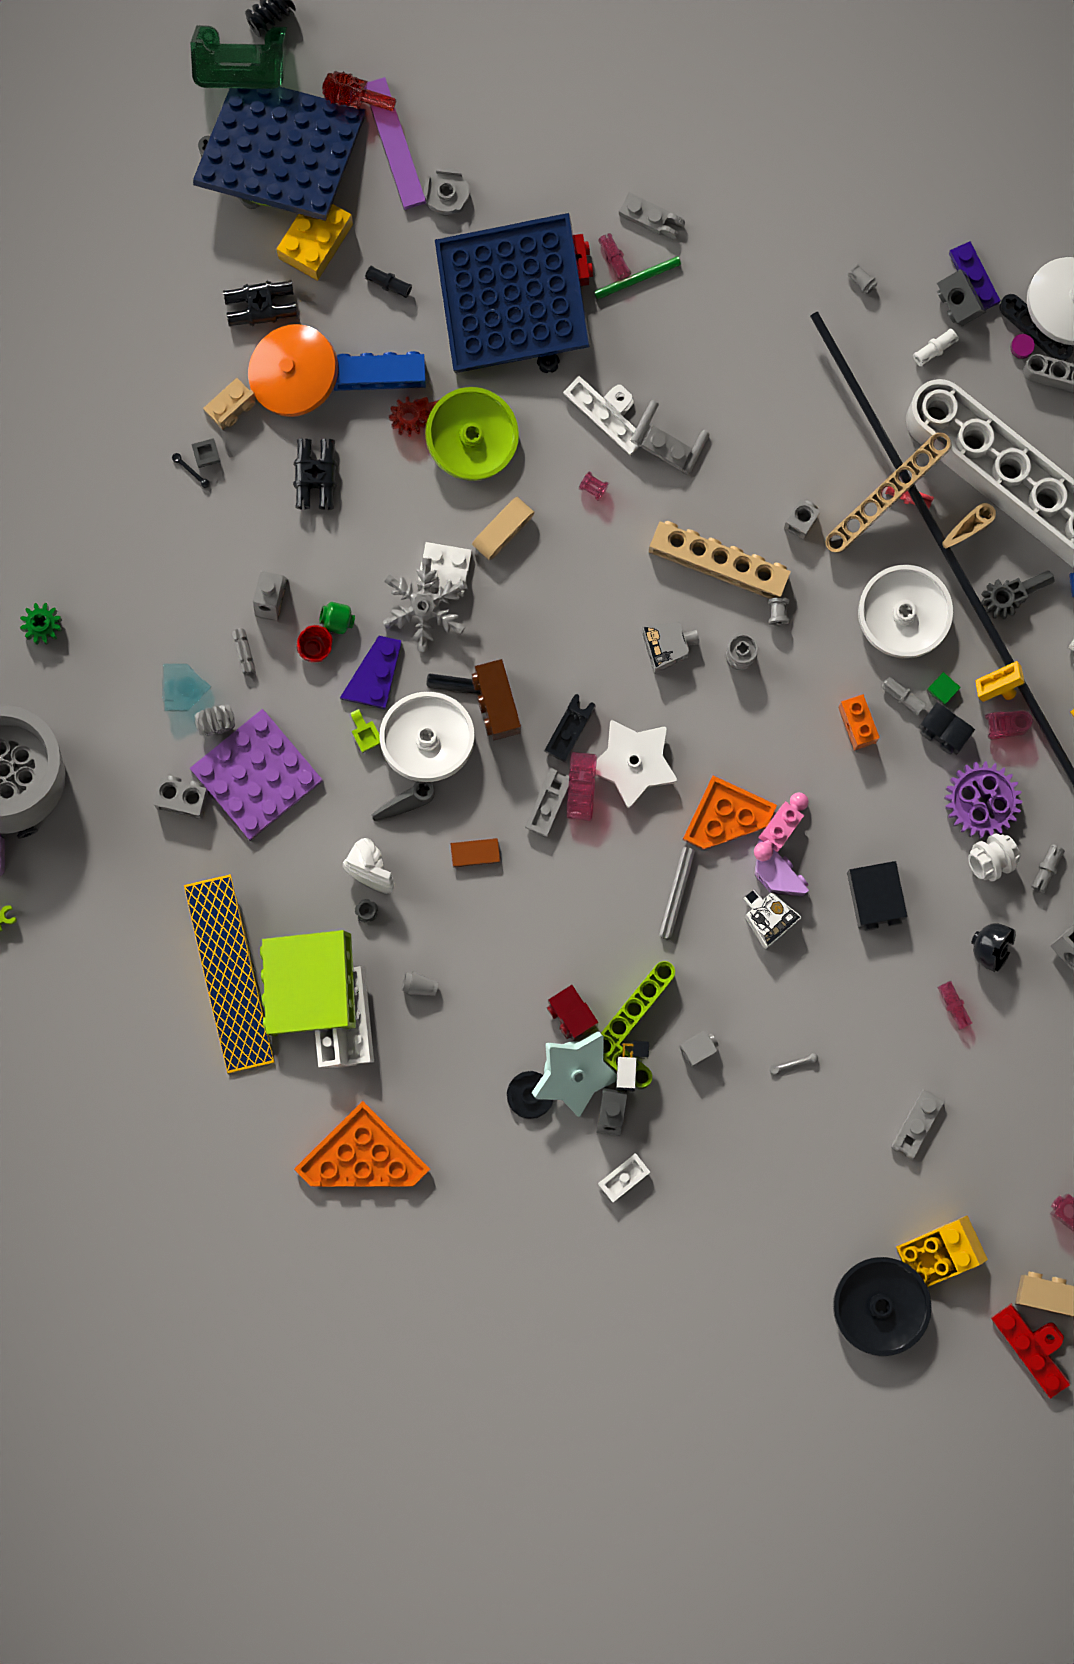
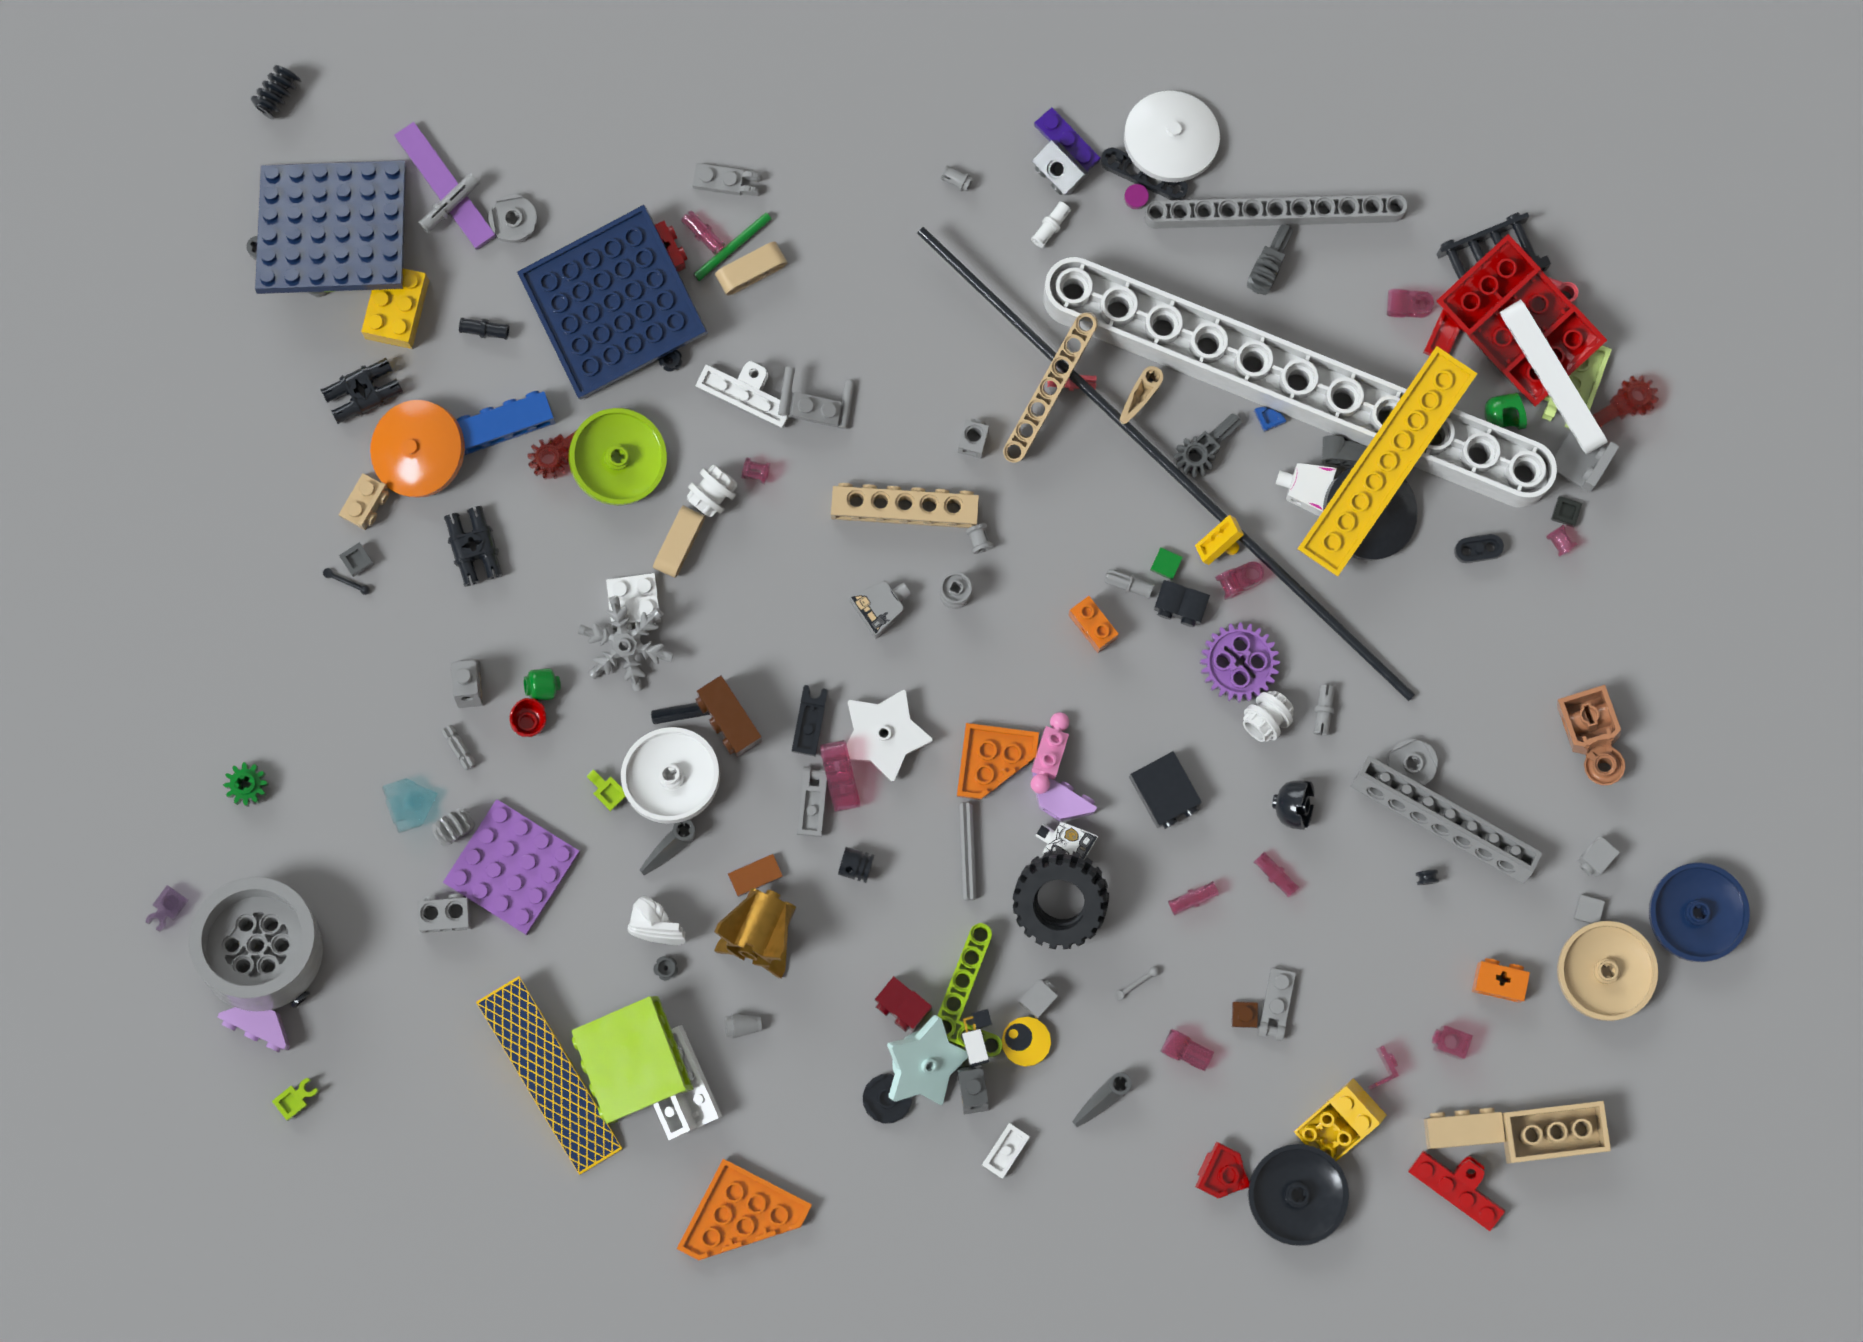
camera: 20 degrees left, 0 degrees up
(238, 64) = (261, 154): clear green windscreen -> none
(352, 92) = (385, 147): clear red gear -> none
(375, 674) = (598, 729): dark purple wing -> none
(392, 159) = (439, 212): none -> light grey pin
(461, 903) = (757, 931): none -> pearl gold brick
(547, 491) = (712, 491): none -> white piece
(570, 872) = (856, 864): none -> black piece
(648, 302) = (751, 268): none -> tan beam
(674, 1084) = (1026, 1041): none -> yellow tile
(728, 1159) = (1102, 1099): none -> dark grey piece
(729, 987) = (1051, 929): none -> black tyre
(816, 1136) = (1182, 1048): none -> clear pink piece
(817, 1263) = (1222, 1172): none -> red plate
(871, 1002) = (1193, 898): none -> clear pink pin
(884, 1124) = (1244, 1014): none -> reddish brown plate
(905, 611) = (1104, 499): white dish -> none
(1005, 1214) = (1389, 1062): none -> clear pink bracket

